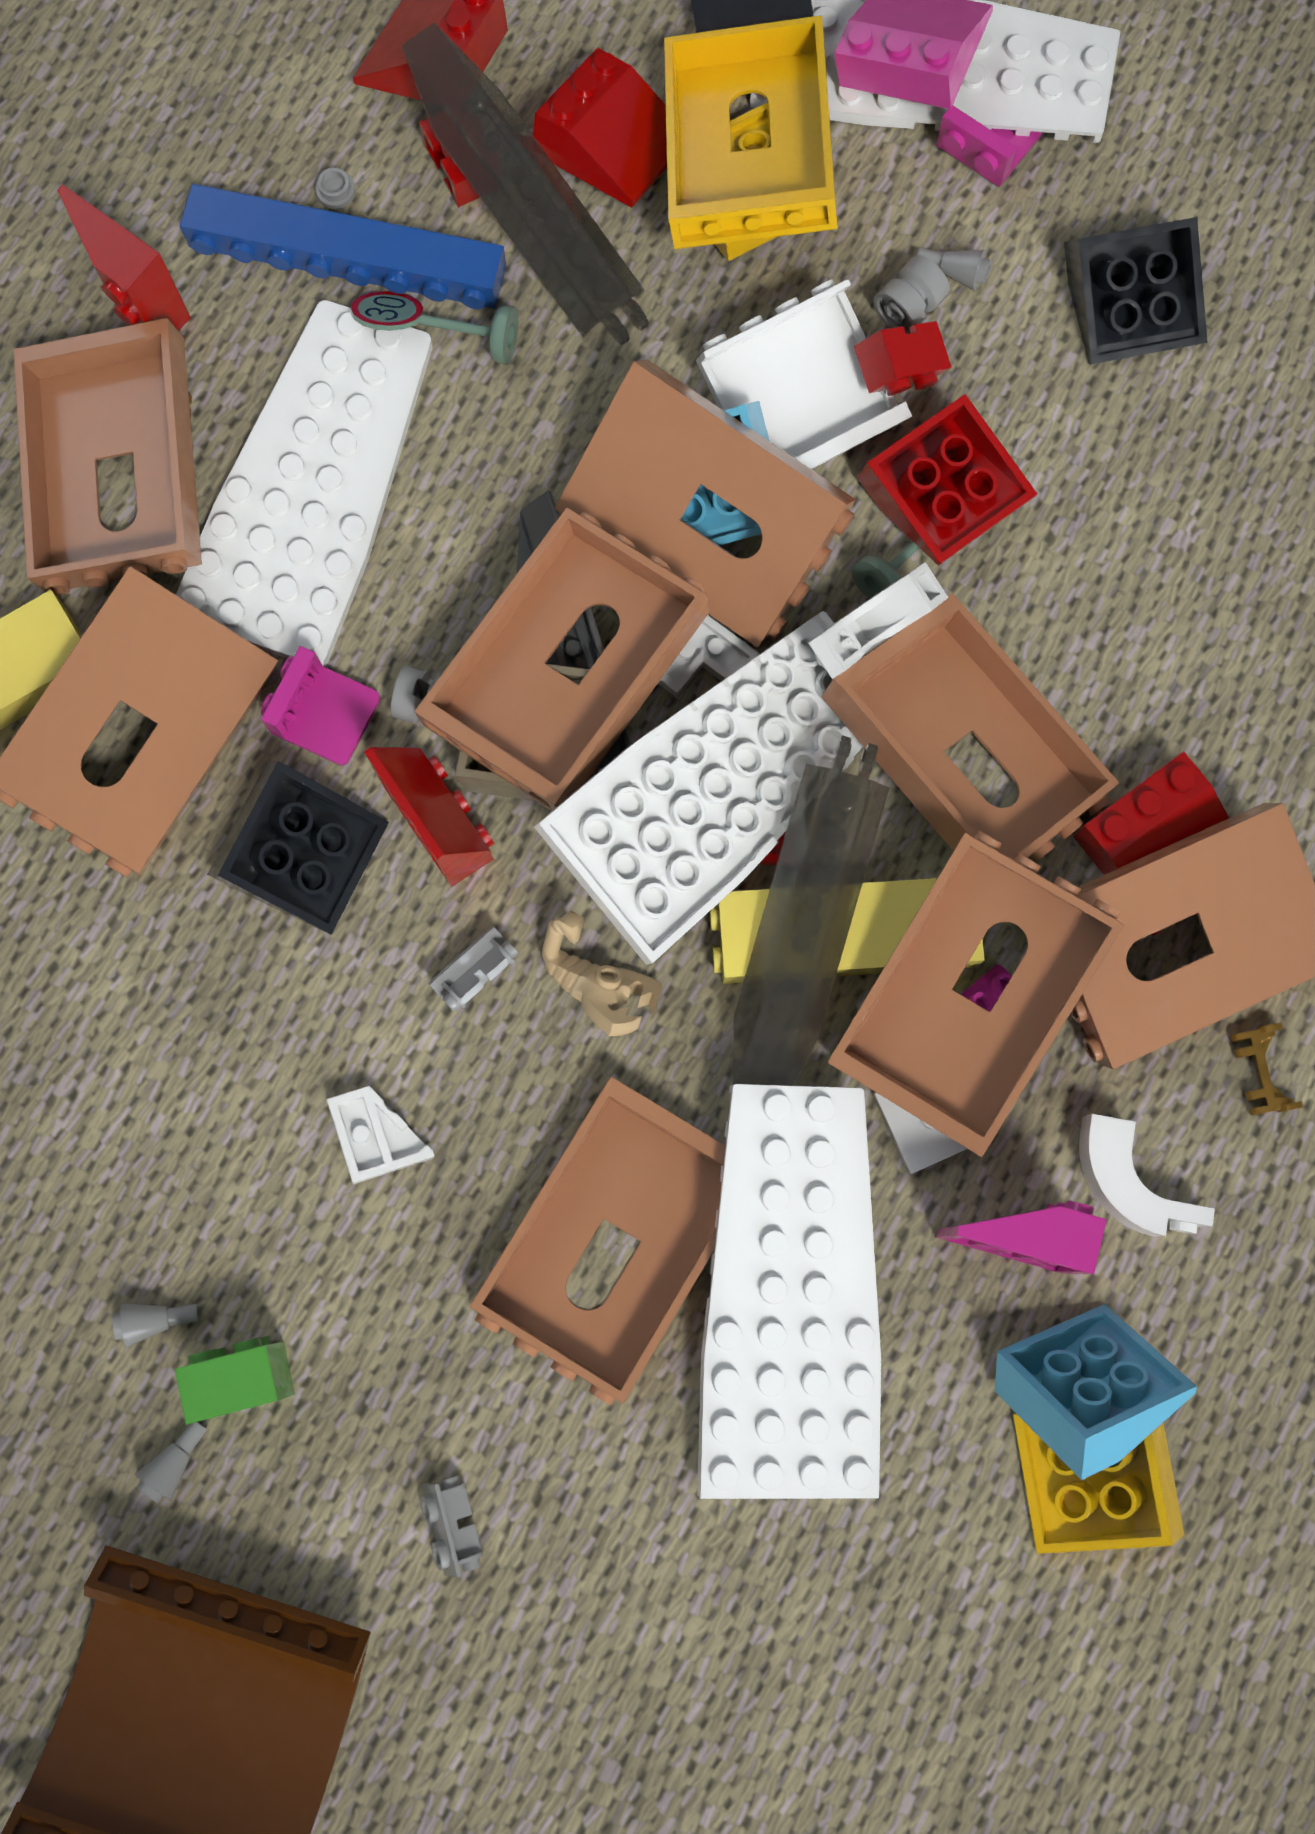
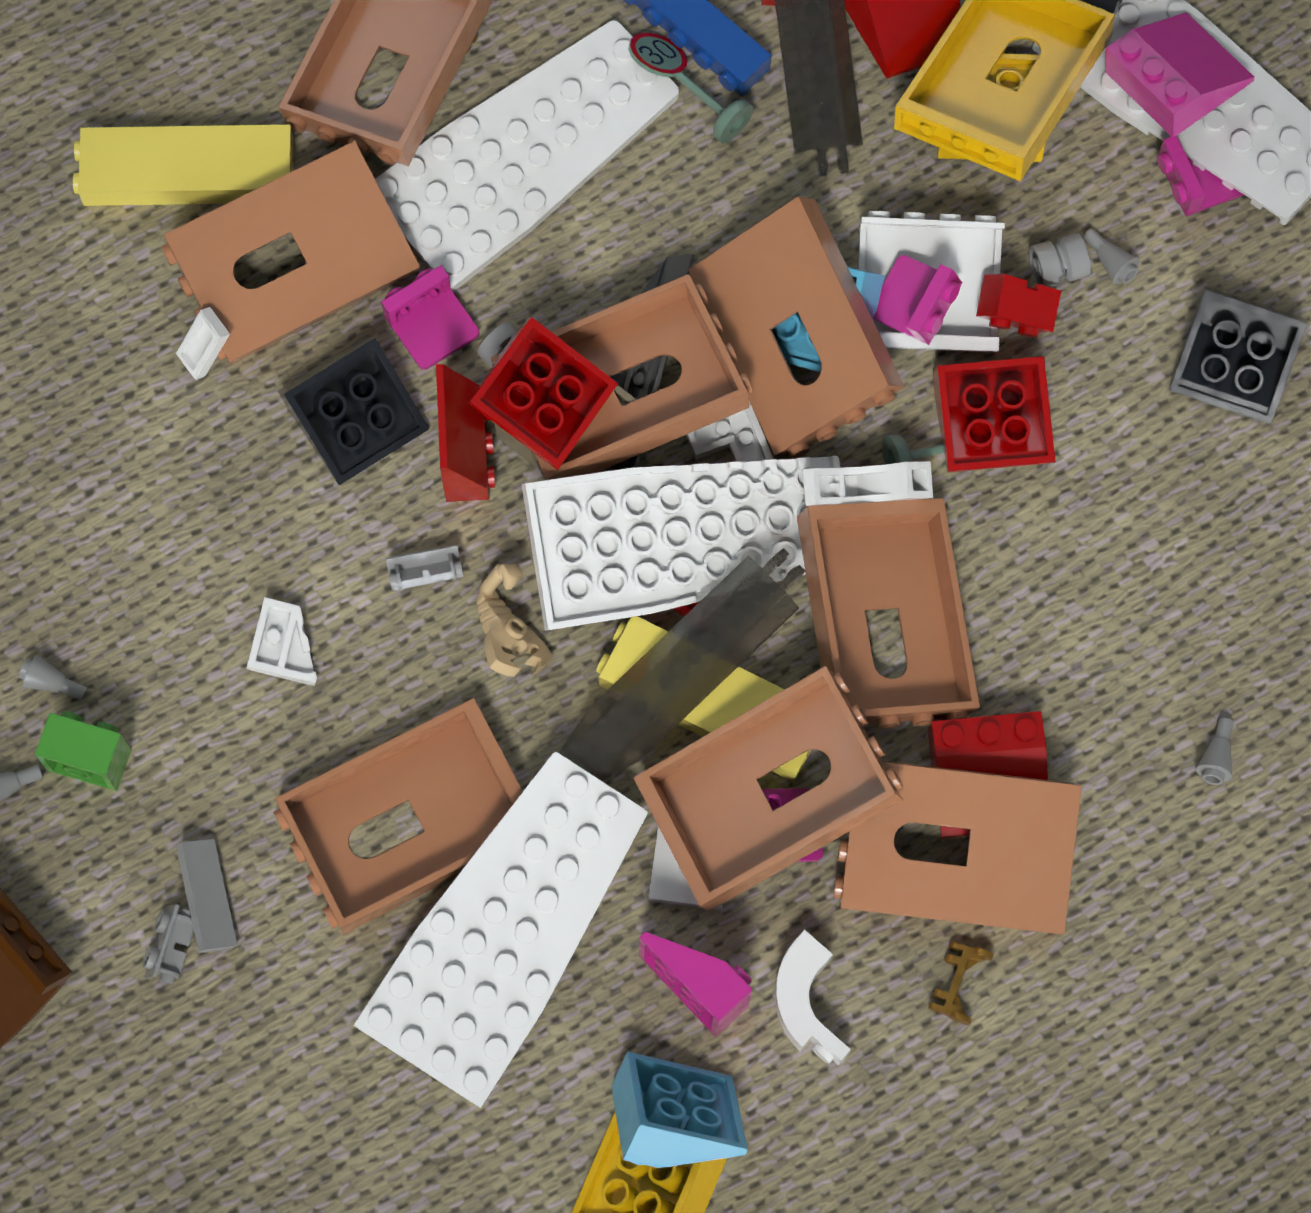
camera: 30 degrees right, 5 degrees down
(98, 870) = (202, 343): none -> white tile
(458, 1451) = (206, 895): none -> light grey tile
(495, 716) = (543, 392): none -> red slope
(806, 404) = (917, 298): none -> dark pink bracket

